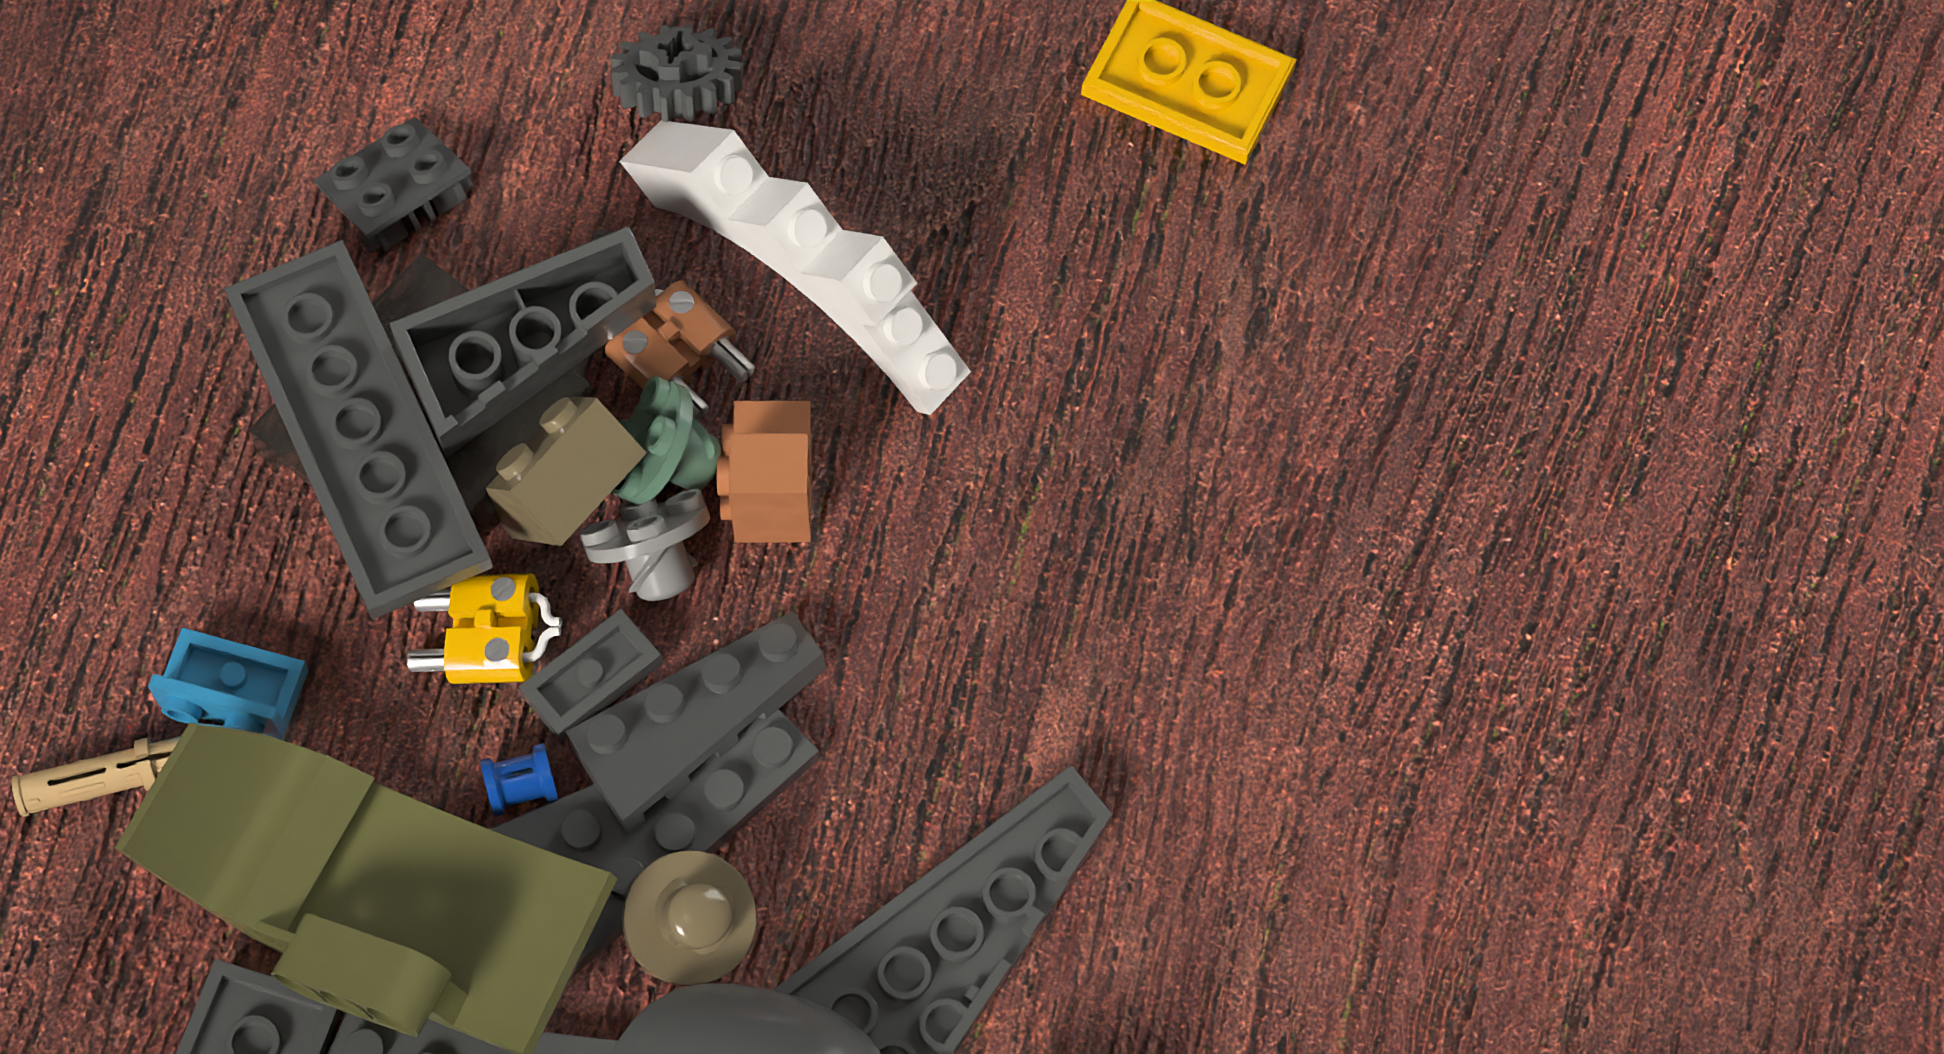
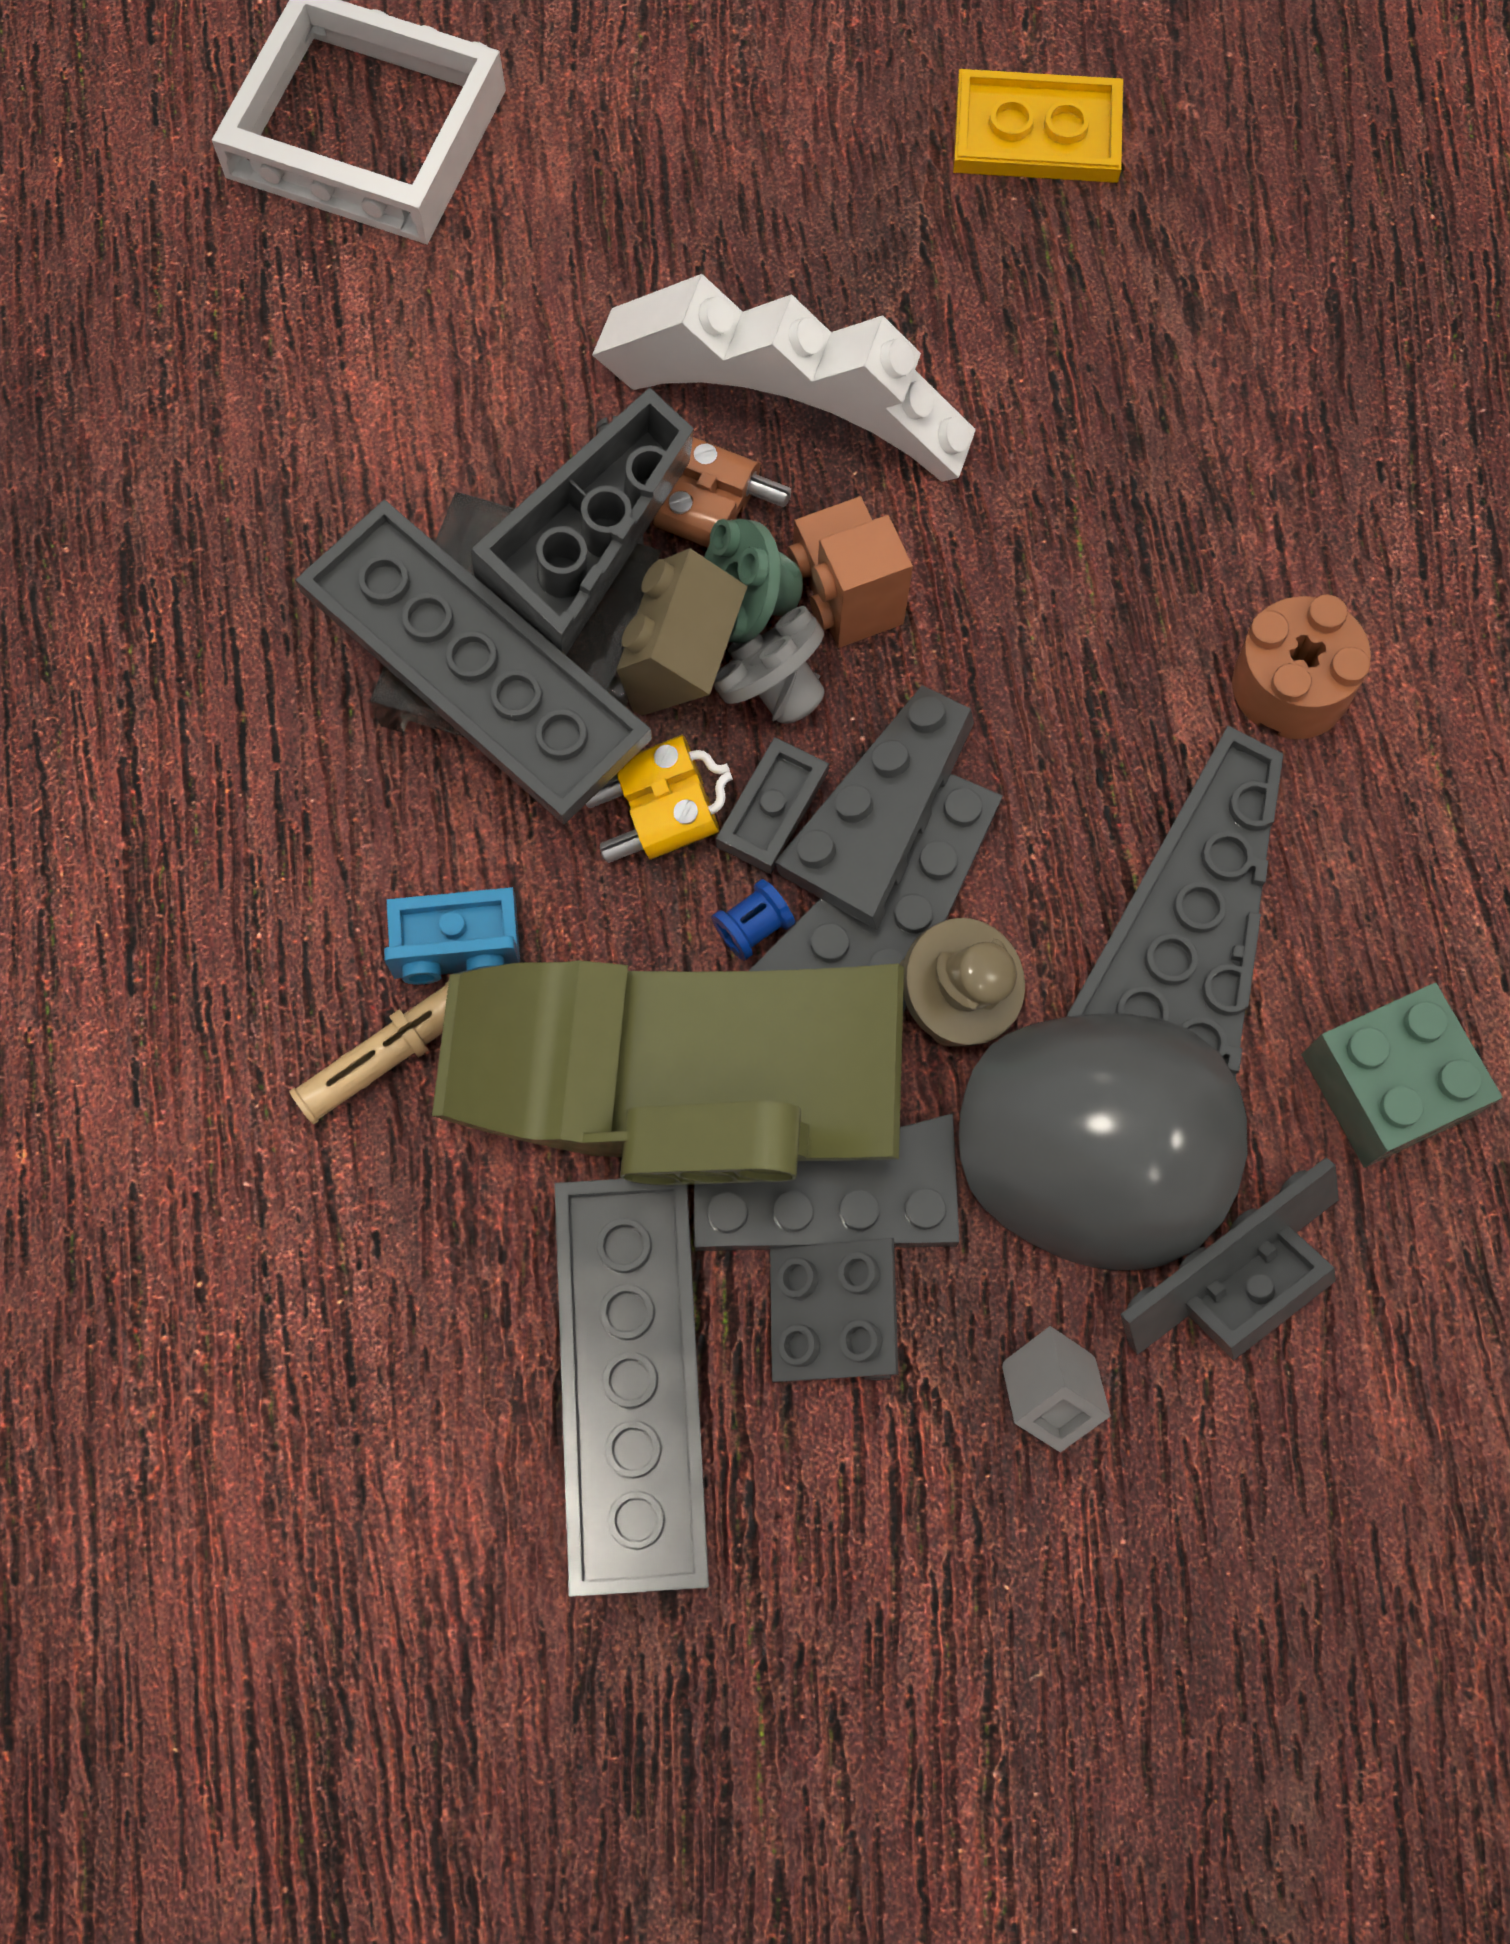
camera: 20 degrees left, 5 degrees up
(392, 180) = (399, 446): dark grey hinge -> none
(677, 72) = (607, 263): dark grey gear -> none
(1177, 698) = (1301, 665): none -> nougat brick

